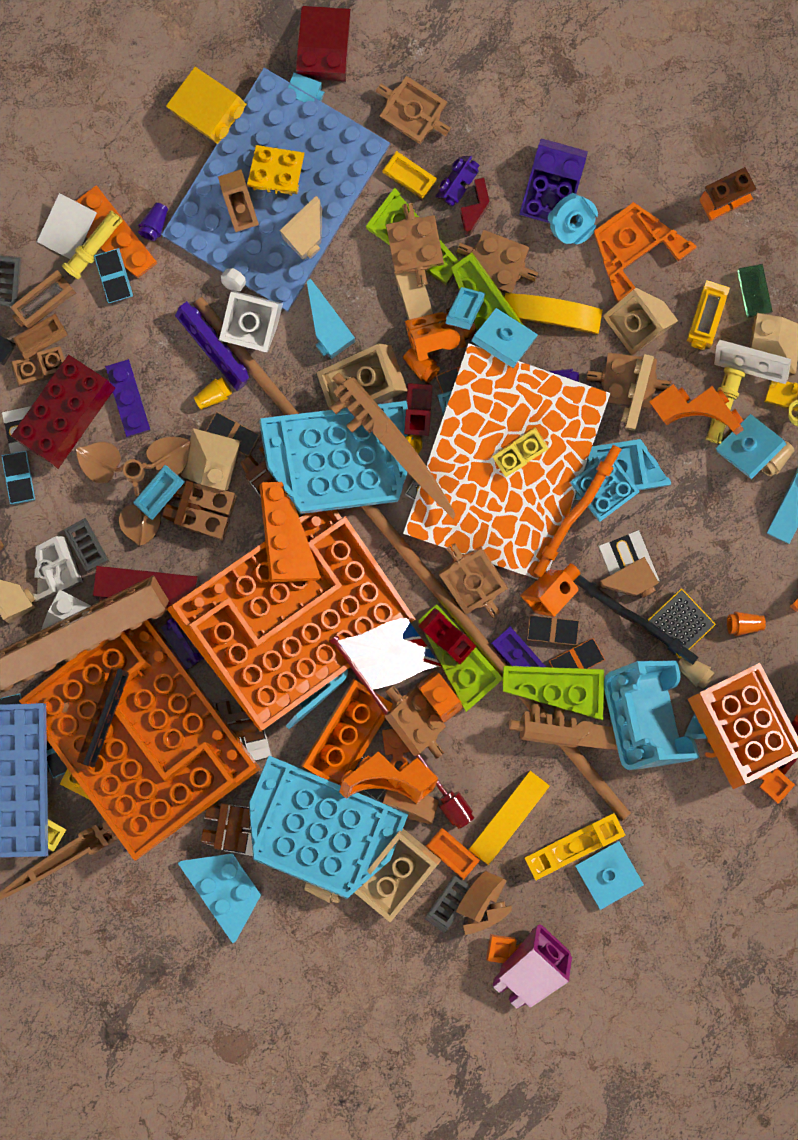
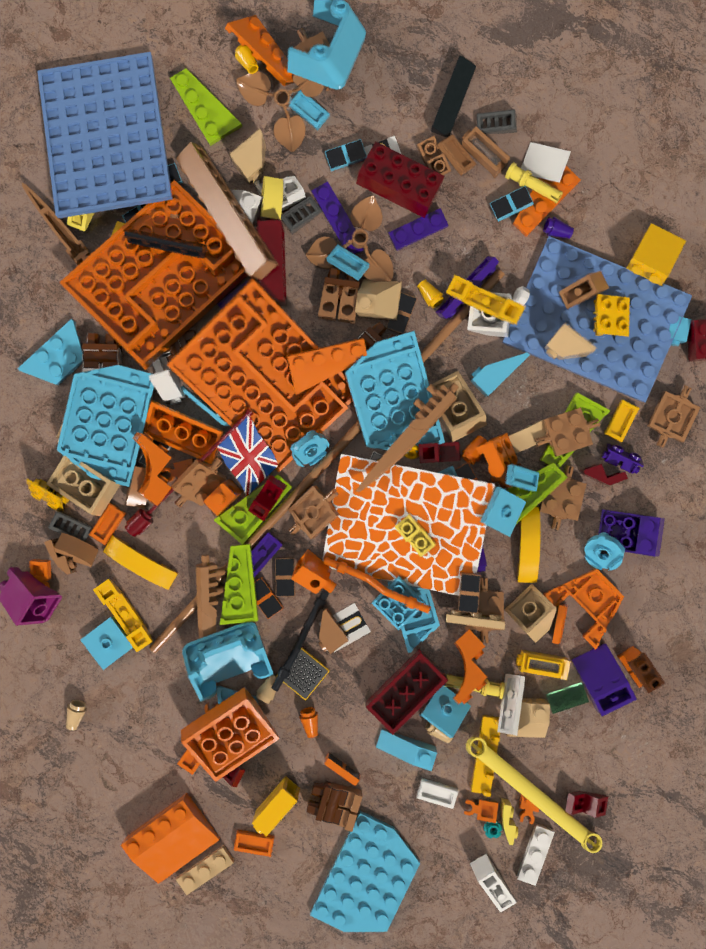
camera: 90 degrees right, 5 degrees up
(62, 575) = (272, 197): none -> light yellow slope
(94, 501) = (335, 215): none -> dark purple plate
(235, 324) = (485, 301): none -> yellow slope
(288, 742) = (168, 386): none -> white slope
(391, 573) = (313, 441): none -> medium azure plate
(398, 933) = (40, 490): none -> yellow hinge
(602, 394) = (469, 592): none -> black tile
(658, 287) = (560, 622): none -> orange tile
(697, 930) = (75, 713): none -> tan cone
(719, 492) = (406, 691): none -> dark red brick
(736, 242) = (603, 680): none -> dark purple slope

